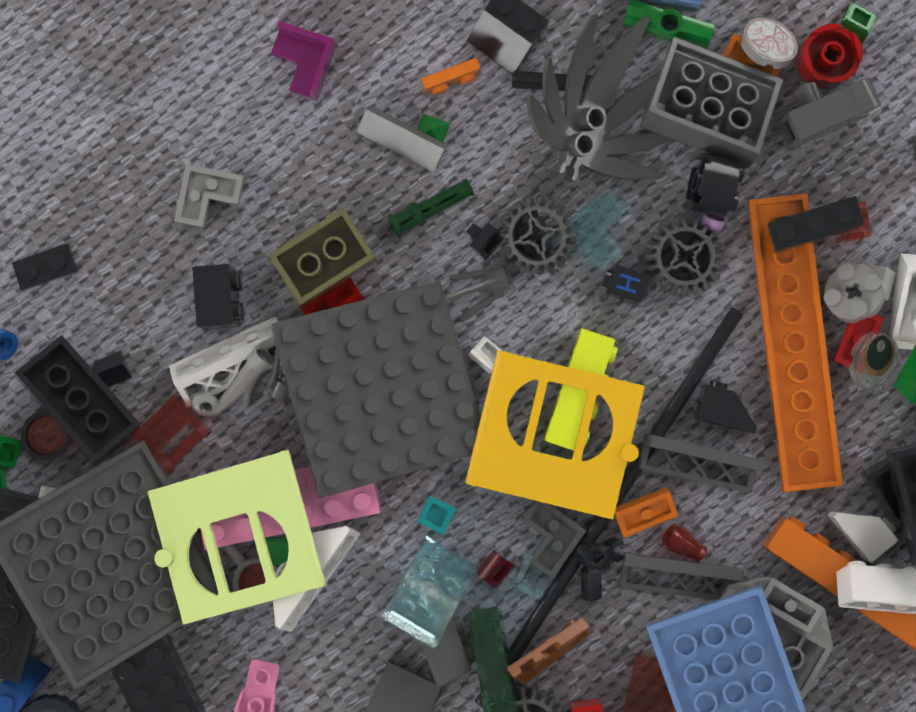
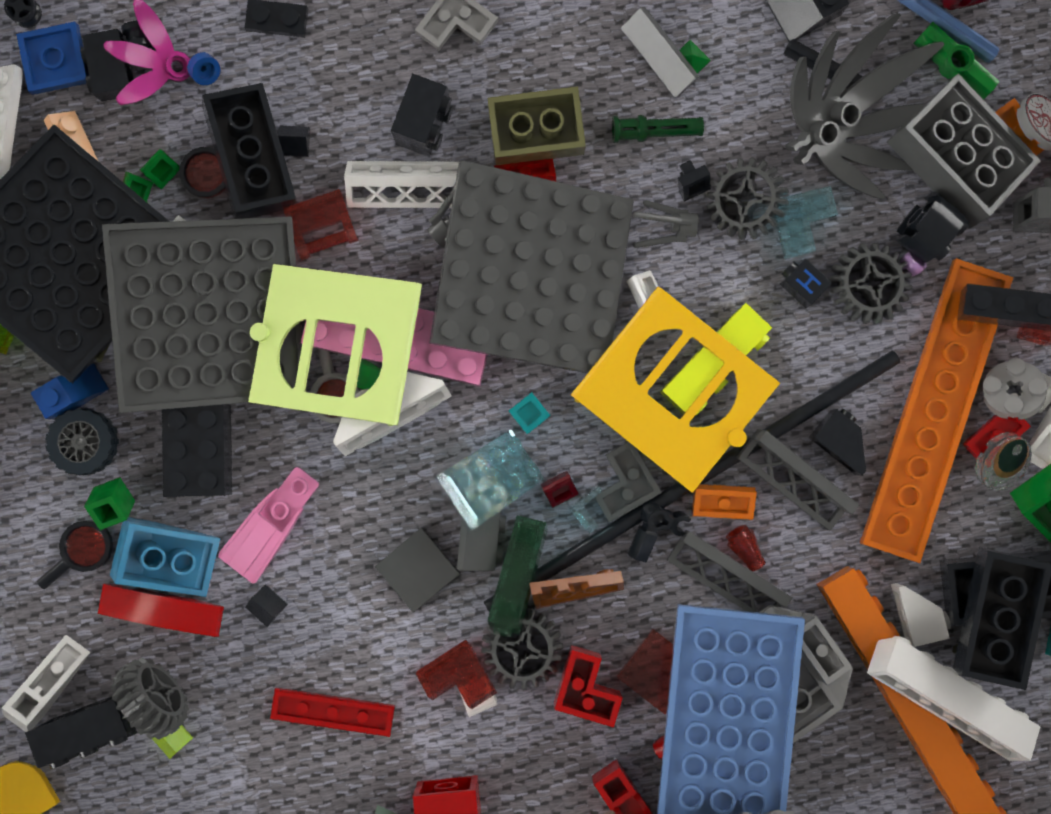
camera: 25 degrees right, 0 degrees up
(257, 363) = (407, 209): light grey plant -> none
(439, 82) = (722, 15): orange plate -> none

